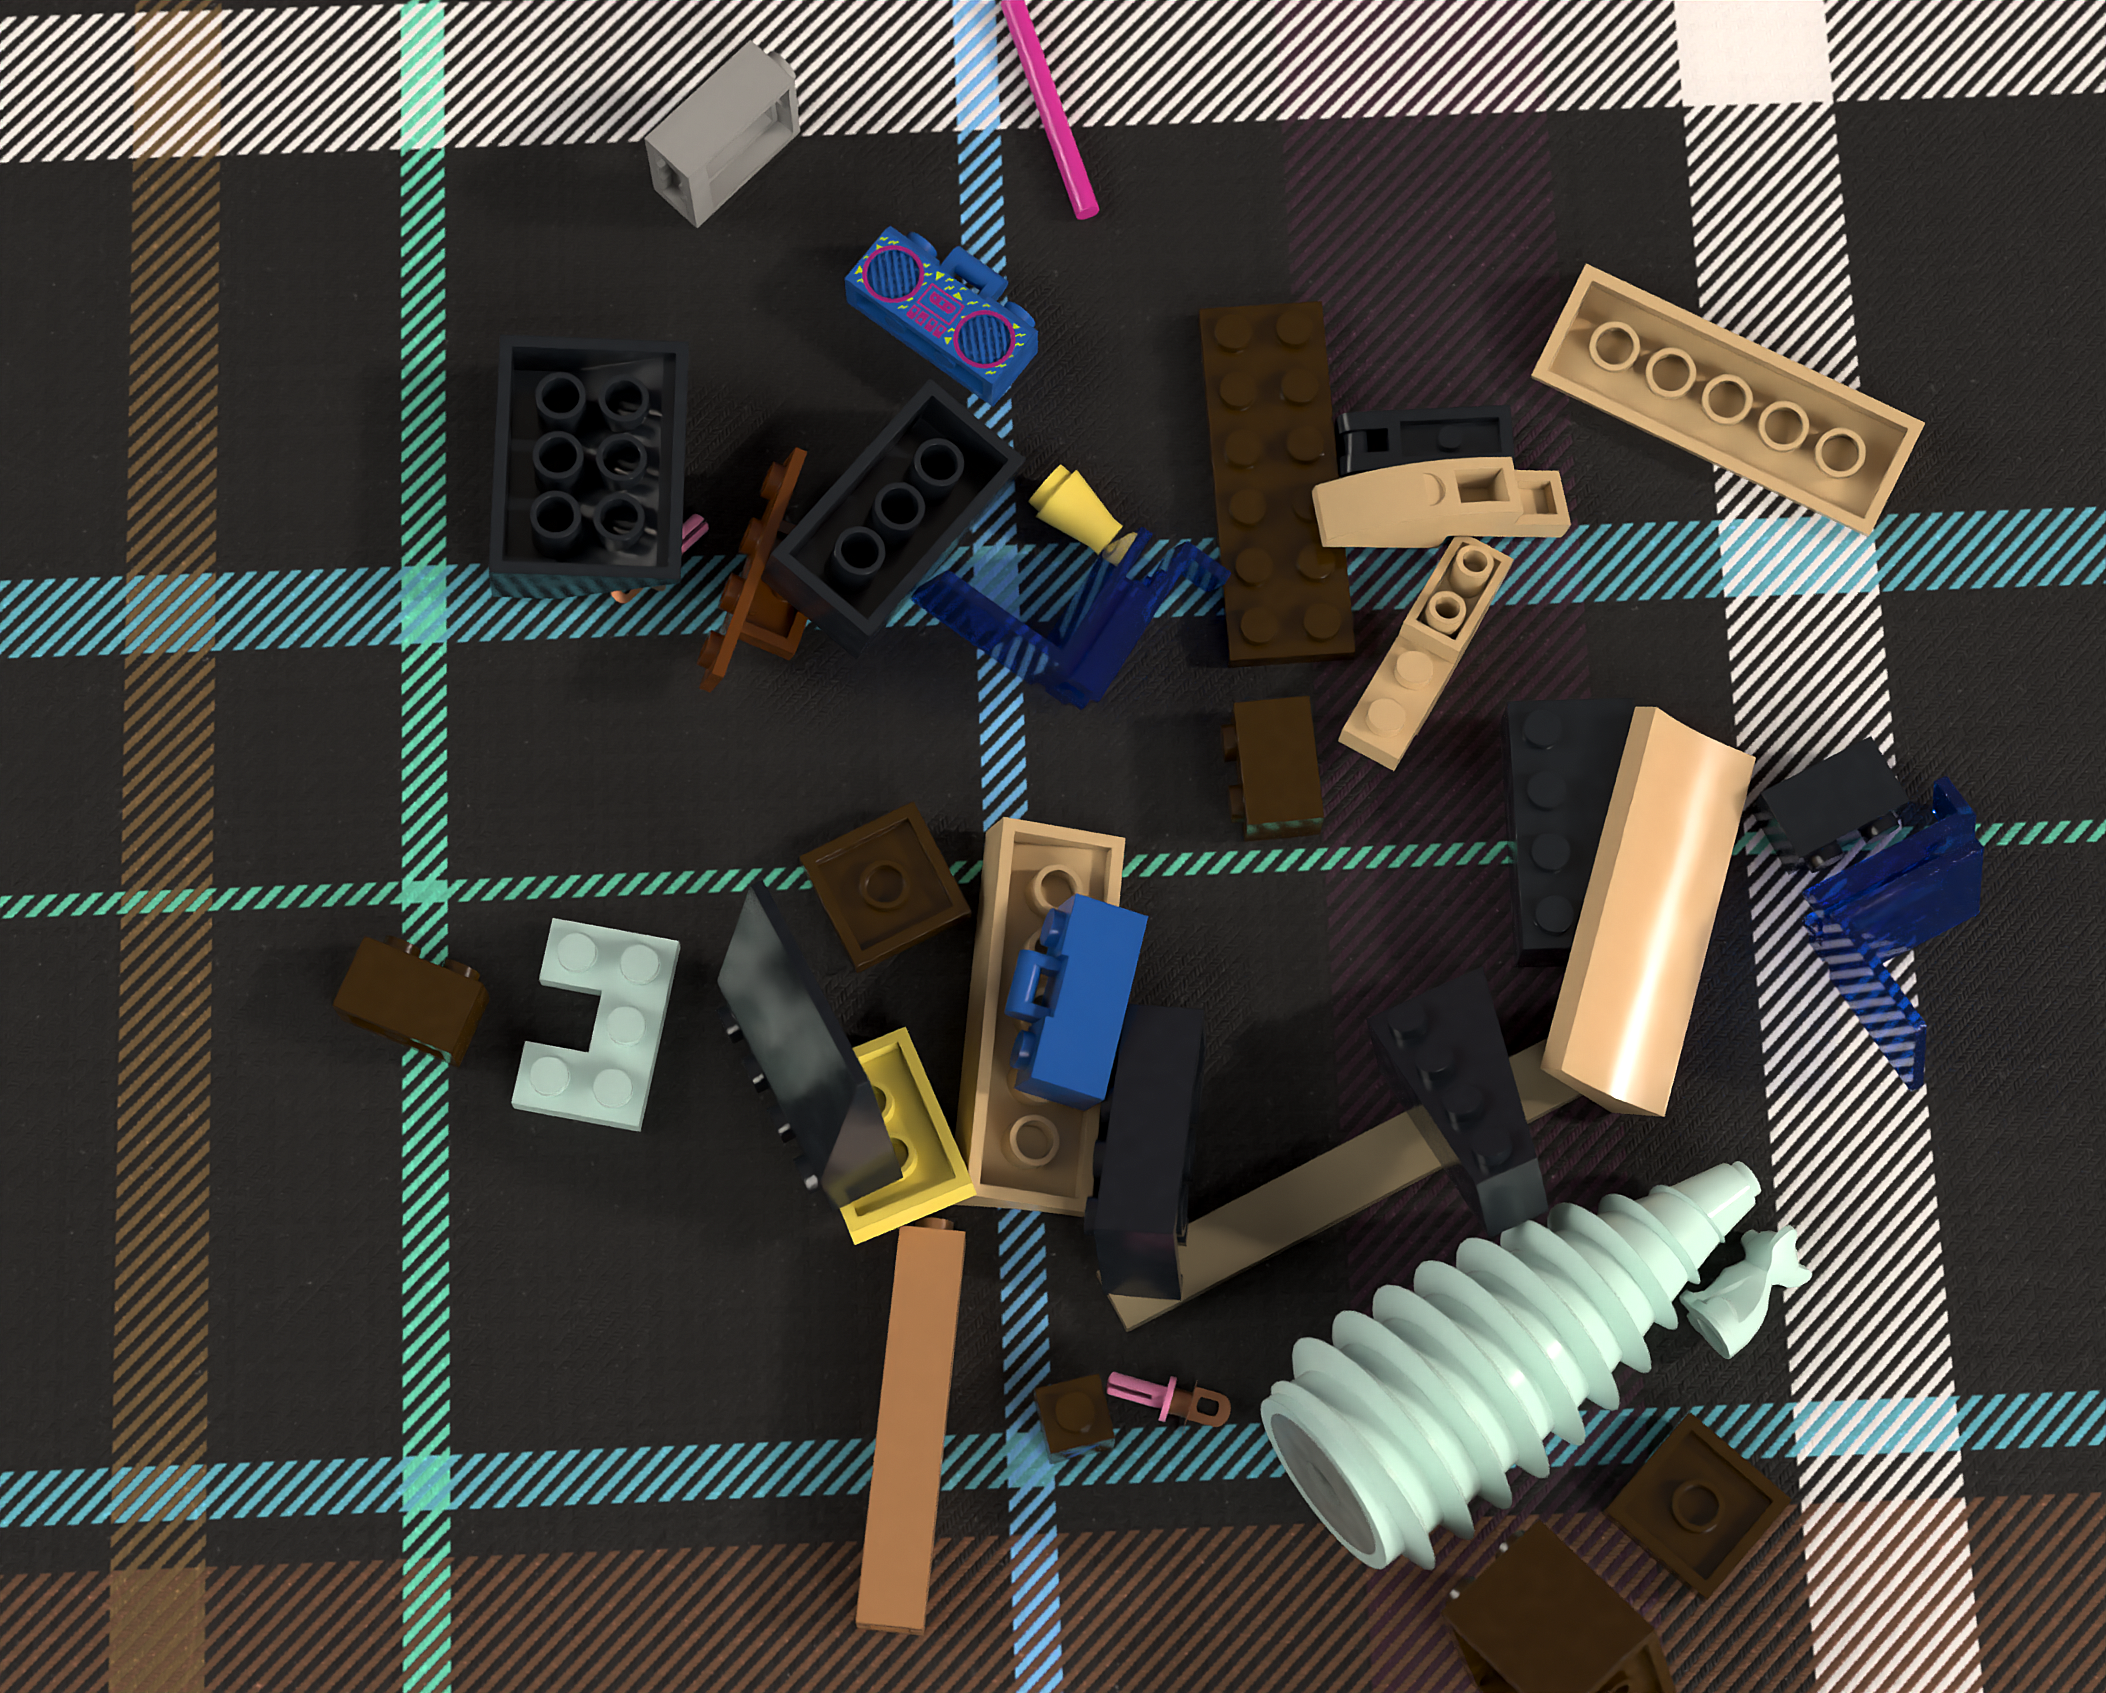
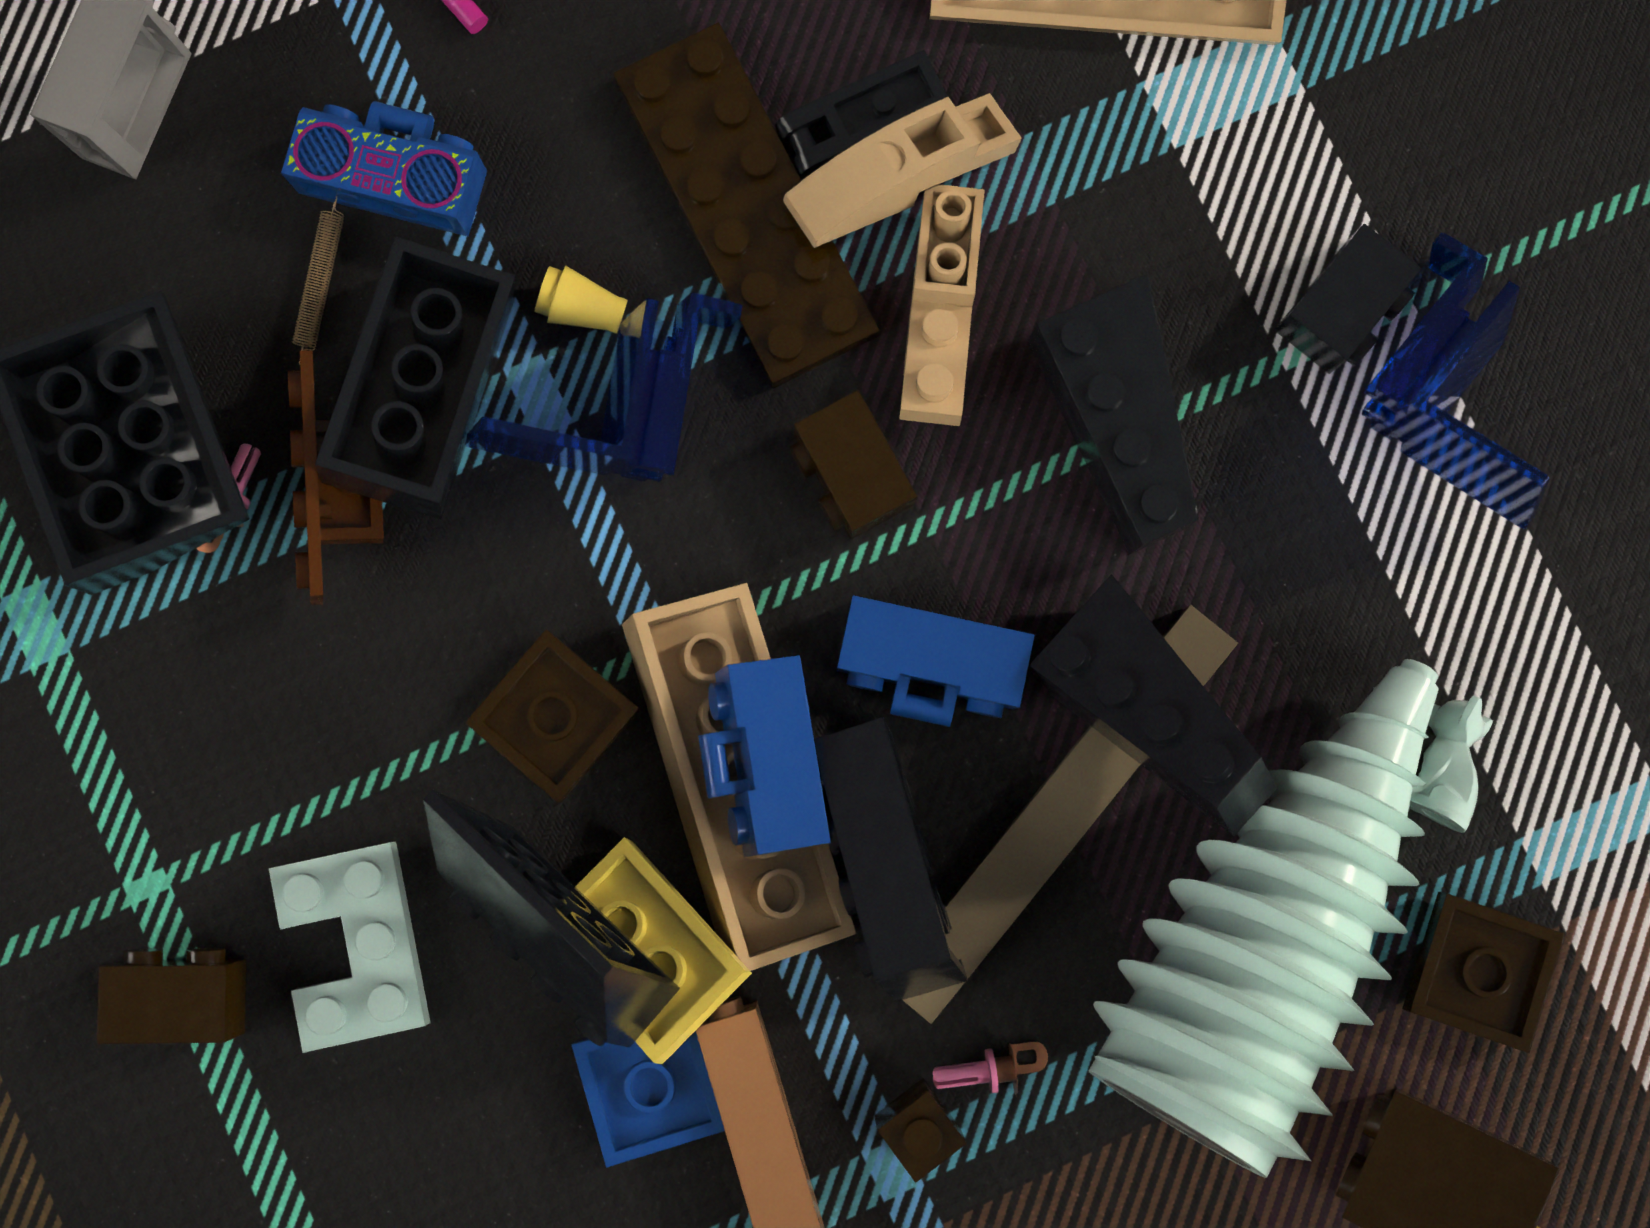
camera: 25 degrees left, 10 degrees up
(808, 416) = (326, 277): none -> tan piece
(822, 1281) = (646, 1104): none -> blue plate
(1281, 974) = (962, 655): none -> blue piece
(1647, 915) = (1236, 464): tan arch -> none

